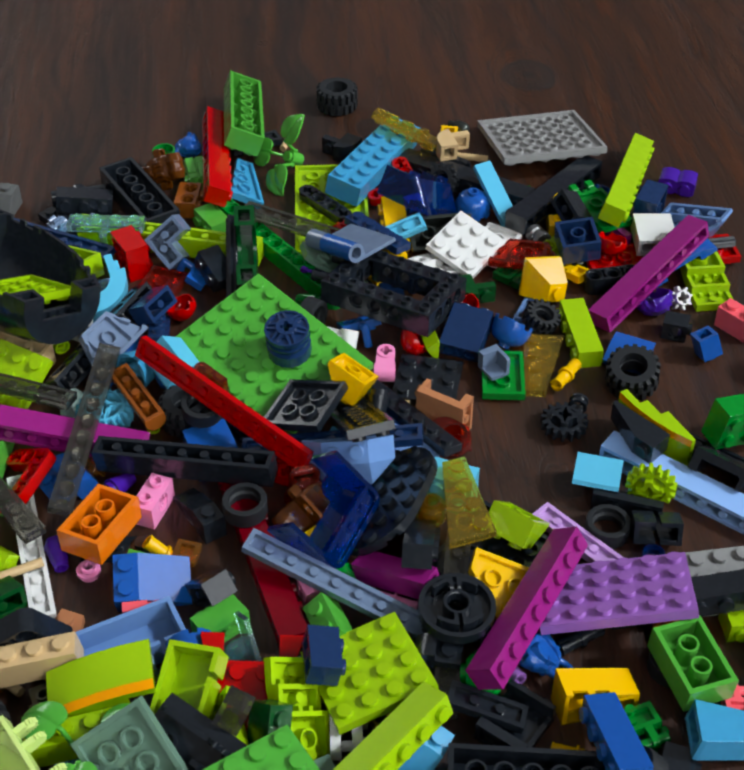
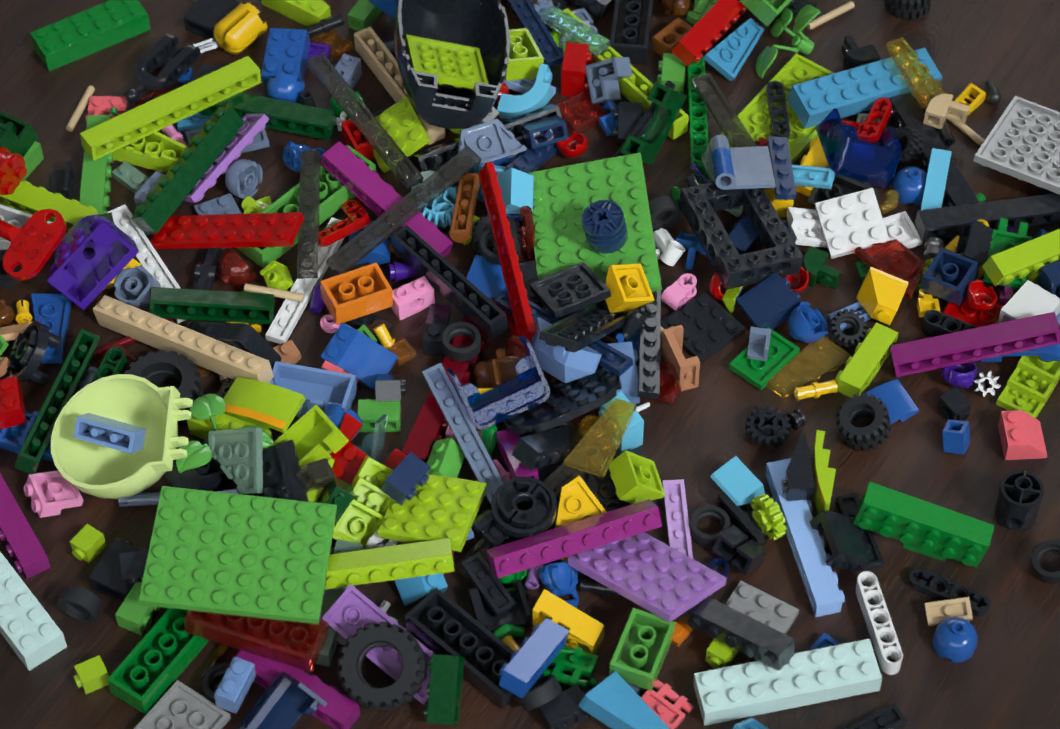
camera: 40 degrees right, 10 degrees up
(545, 737) = (509, 630): none -> green arm

